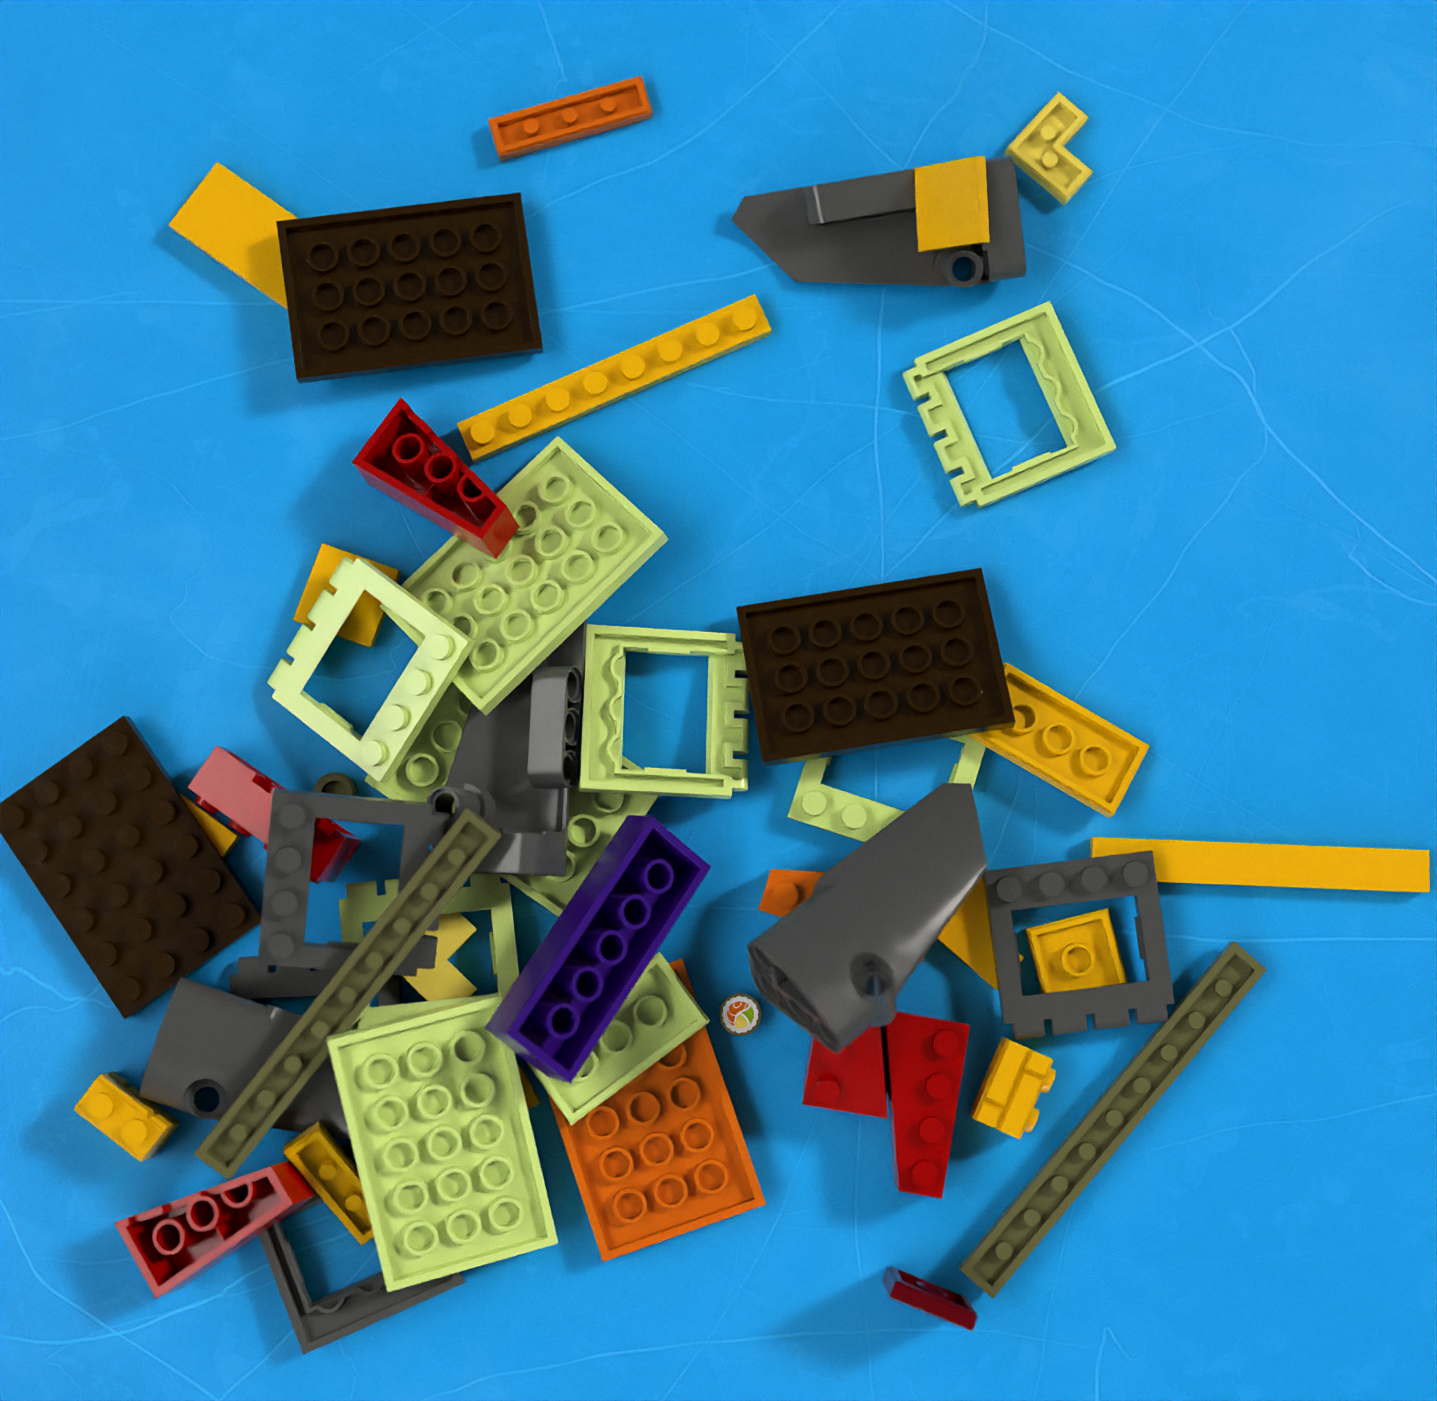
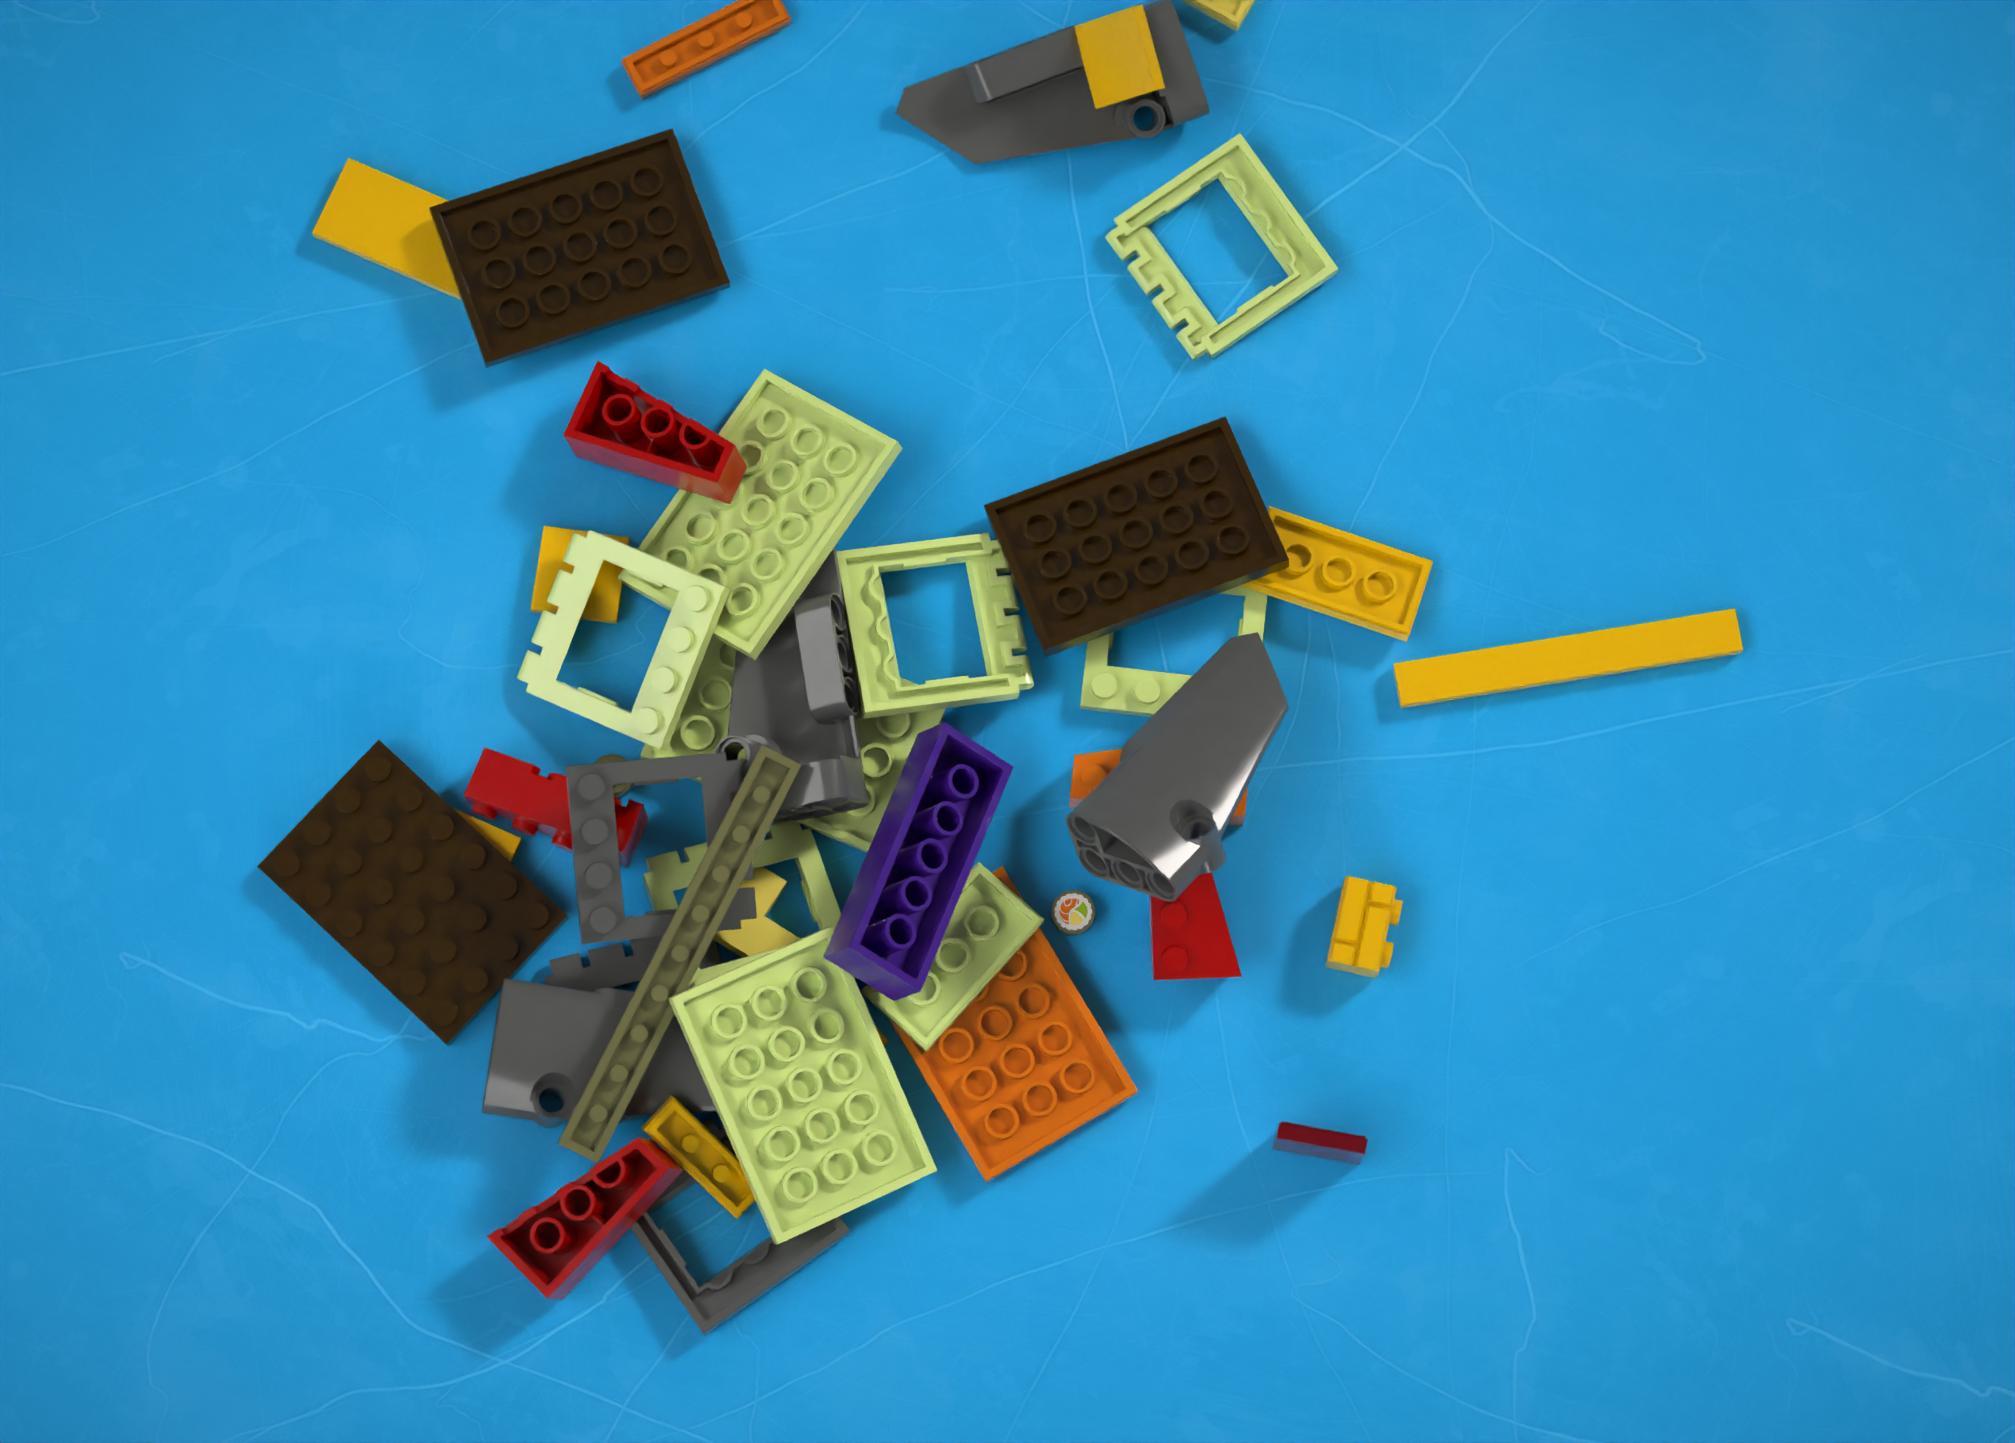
camera: 15 degrees left, 5 degrees down
(126, 1118) = (471, 1136): yellow brick -> none
(614, 378) = (809, 299): yellow plate -> none
(923, 1091) = (1271, 939): red wedge -> none
(970, 936) = (1288, 780): yellow tile -> none
(1073, 883) = (1379, 711): dark grey hinge -> none
(1076, 953) = (1403, 790): yellow tile -> none
(1111, 1119) = (1469, 938): olive plate -> none

